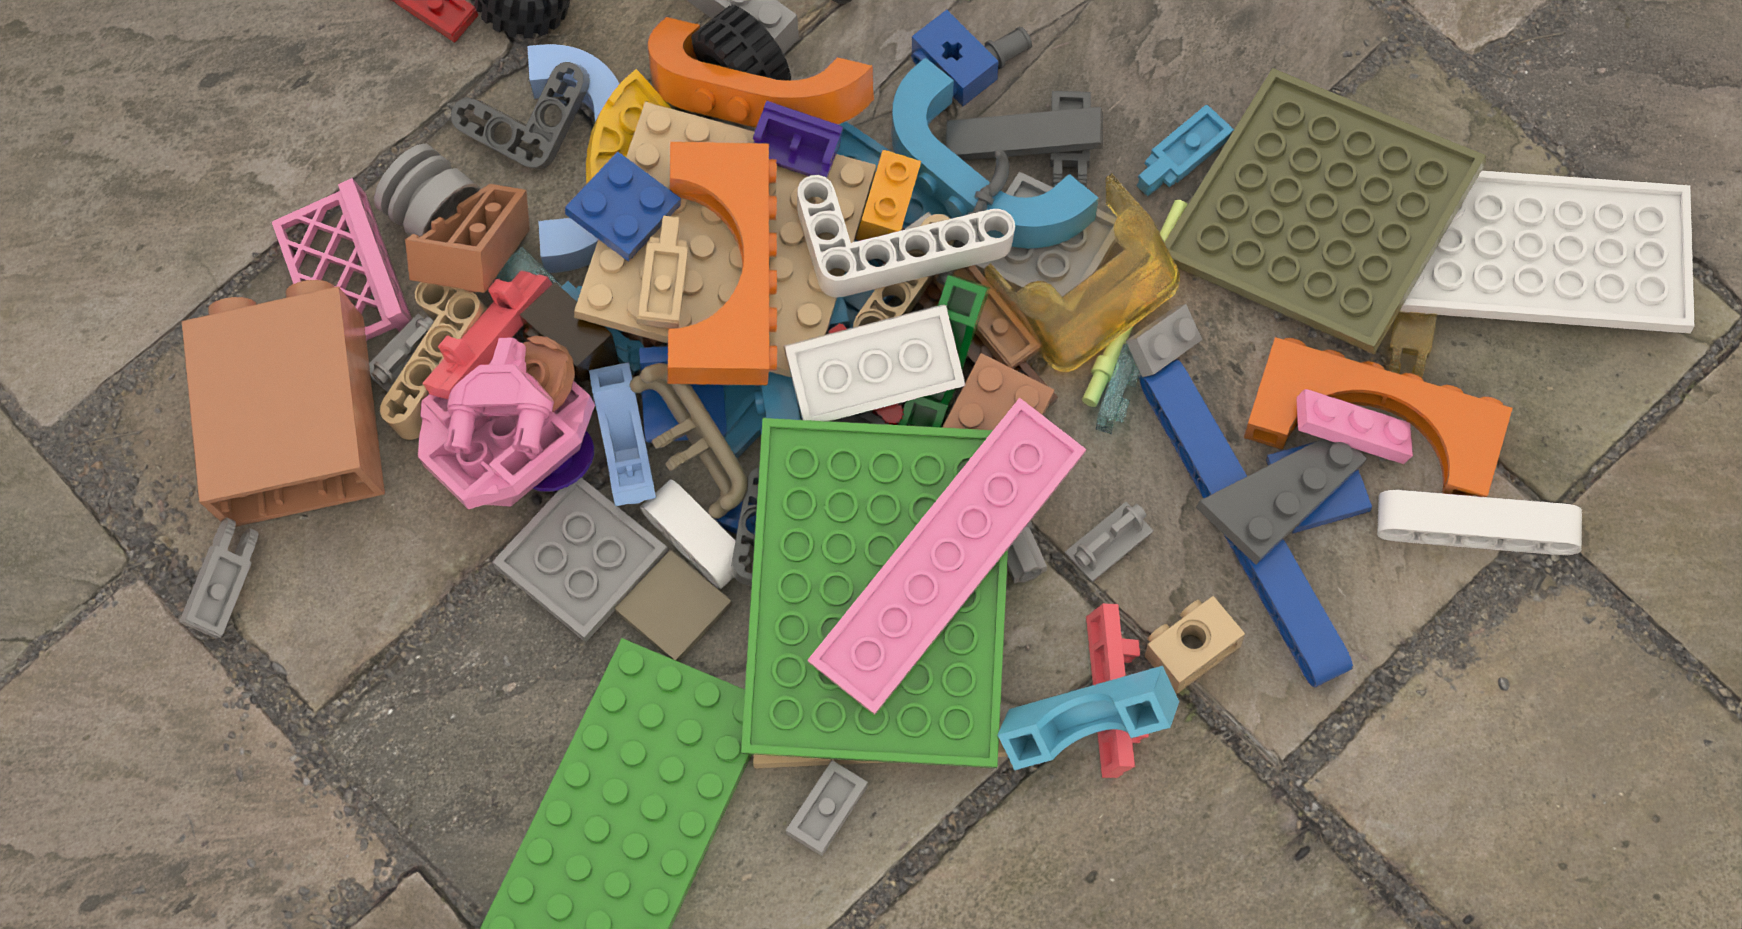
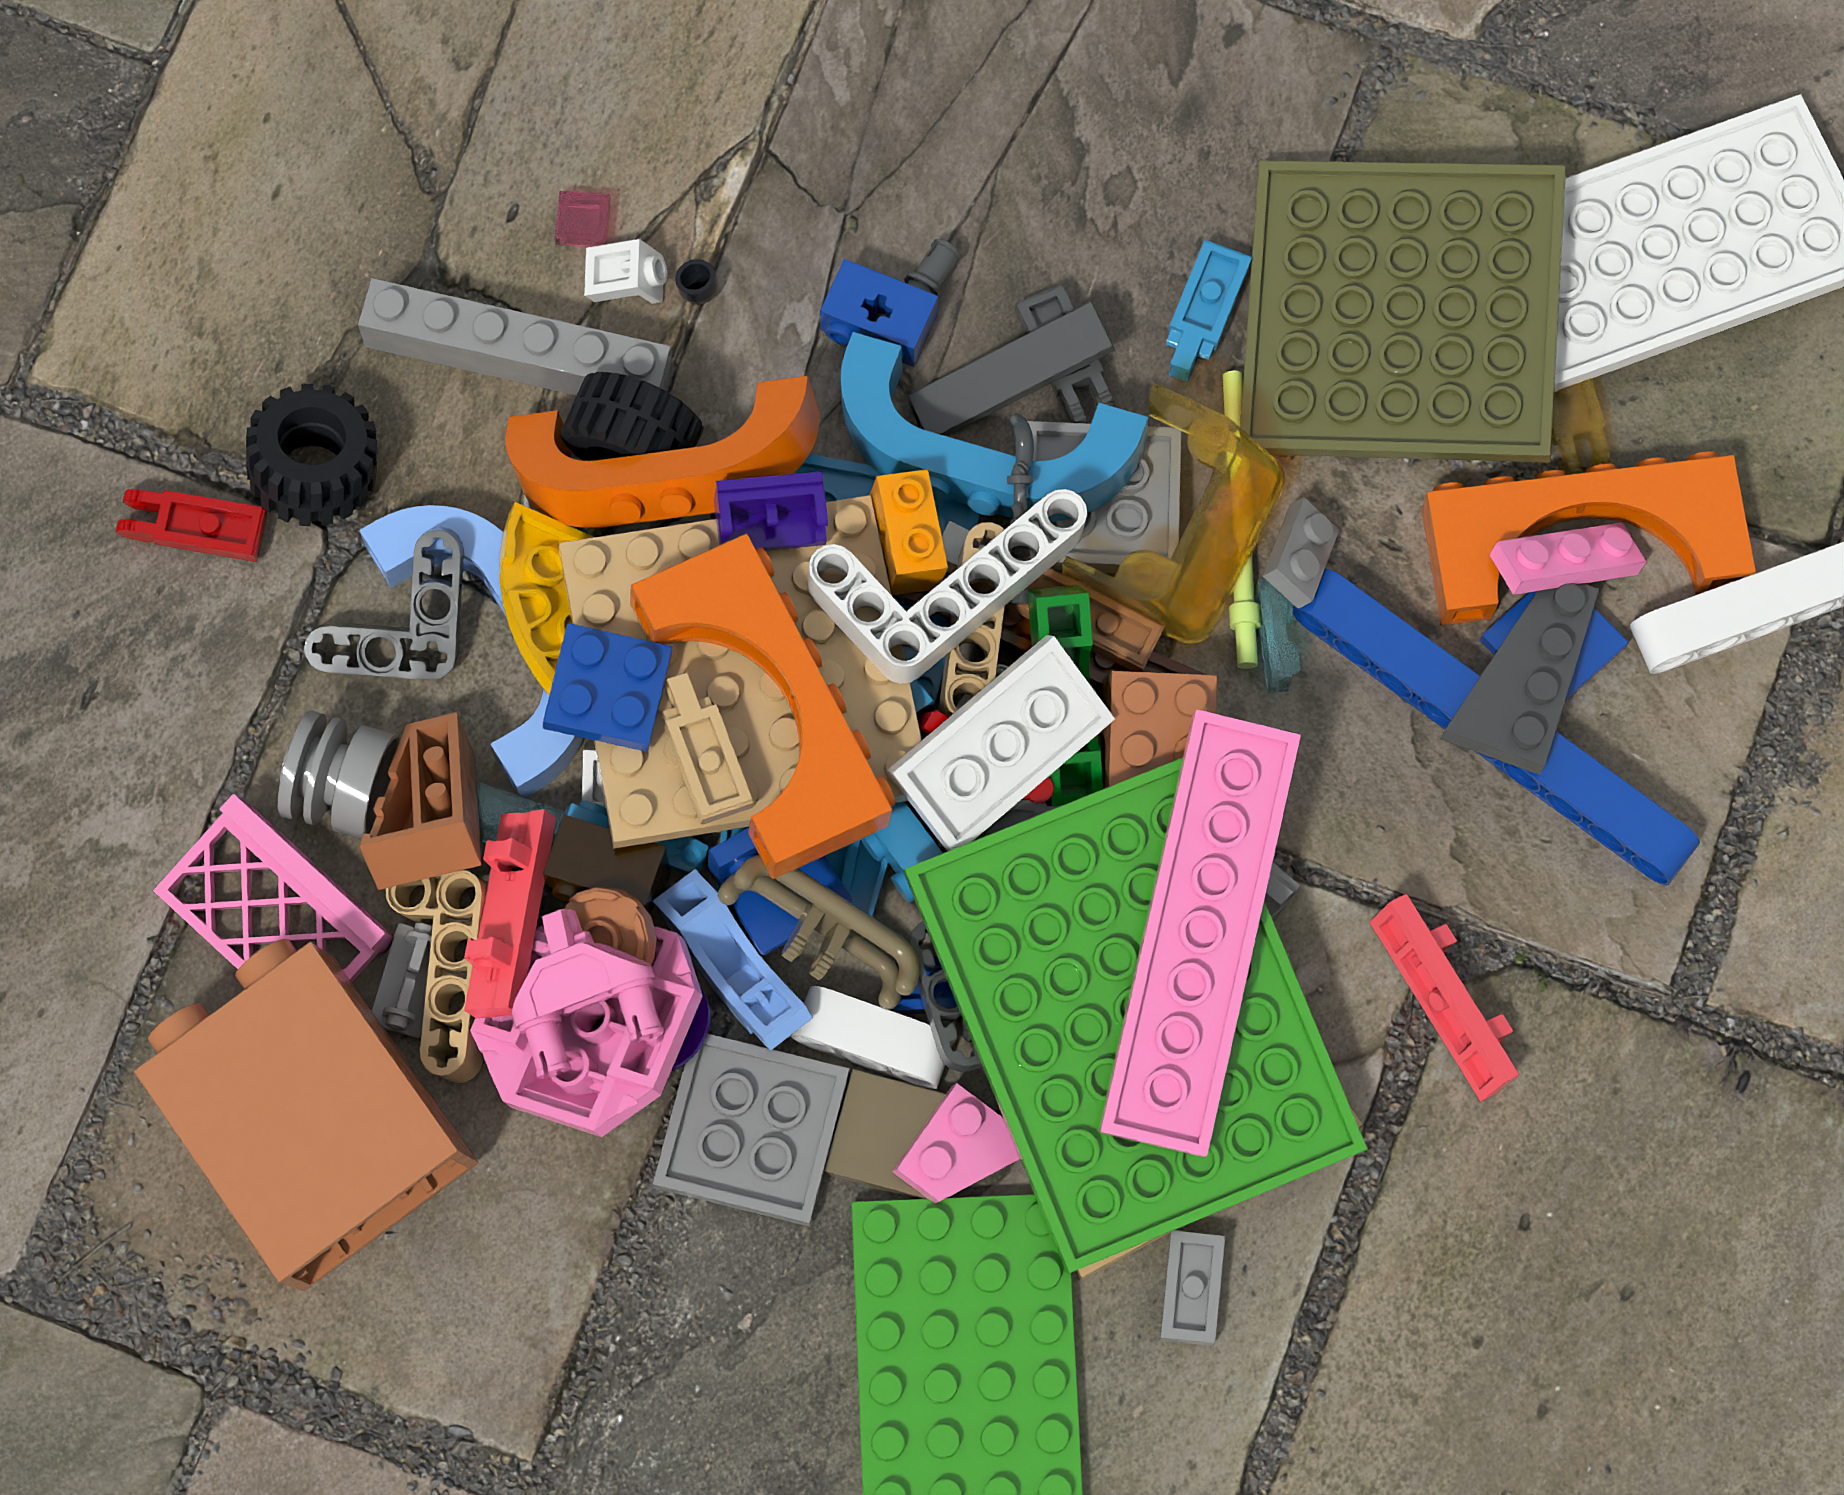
camera: 30 degrees left, 5 degrees up
(219, 581) = (336, 1359): light grey hinge -> none
(710, 633) = (956, 1147): none -> bright pink wing
(1110, 541) = (1353, 820): light grey hinge -> none
(1129, 703) = (1398, 1077): medium azure arch -> none
(1207, 622) = (1500, 928): tan brick -> none

